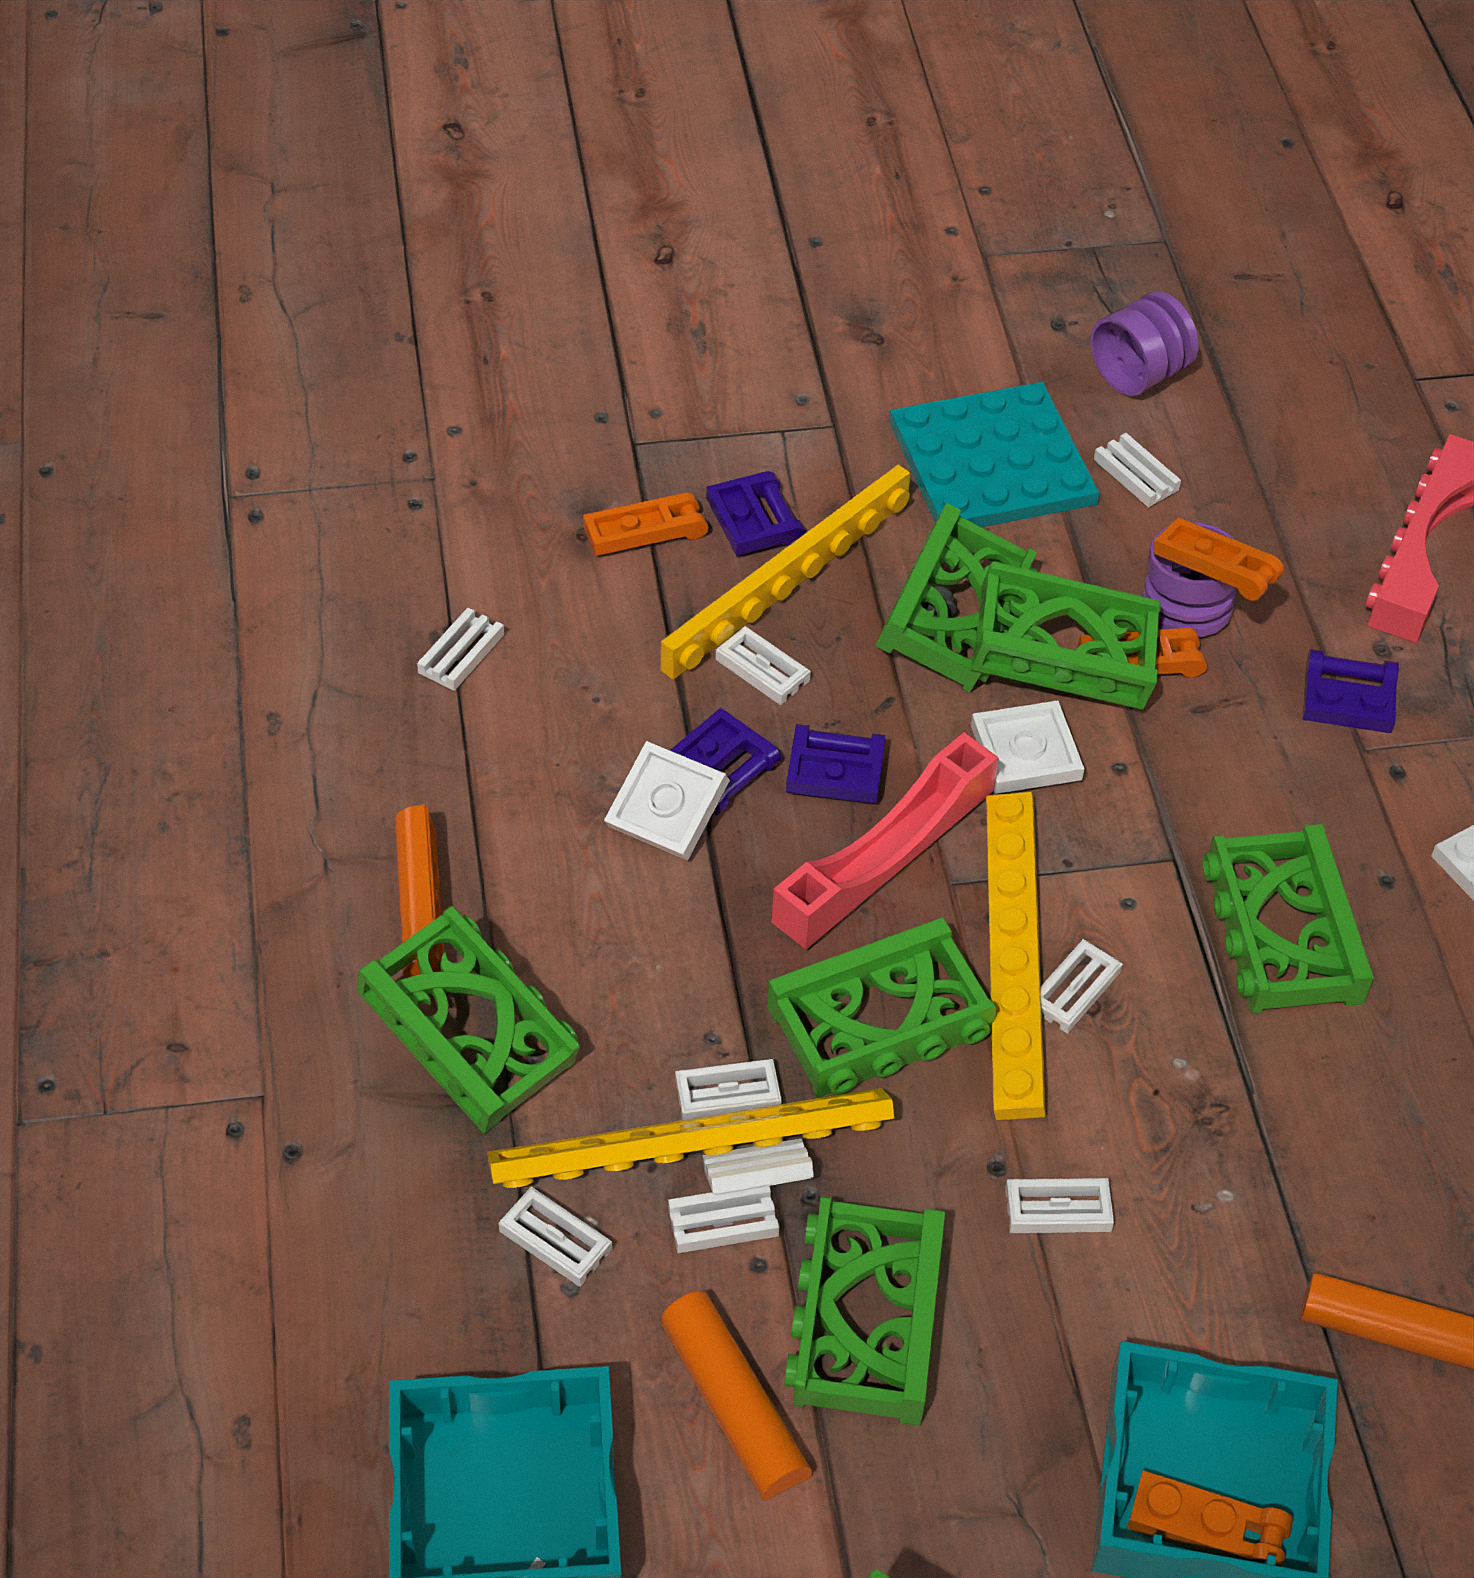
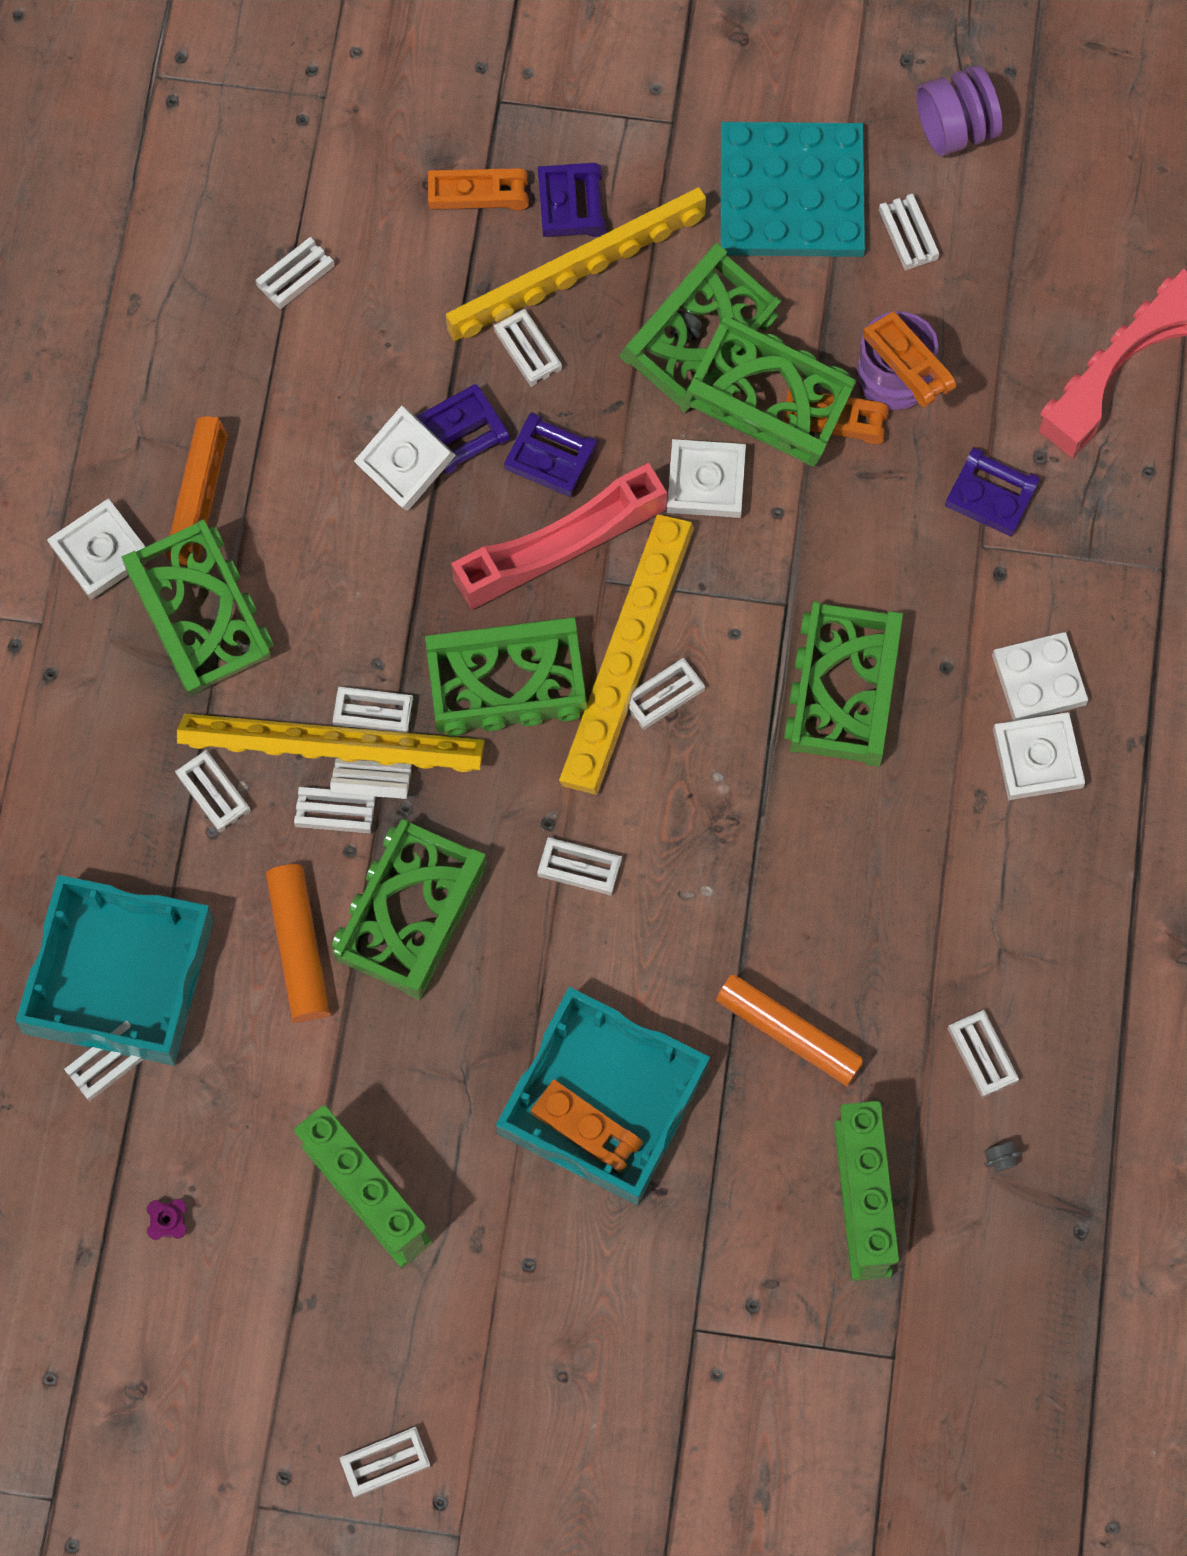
camera: 20 degrees right, 20 degrees up
(311, 988) = (94, 548): none -> white plate

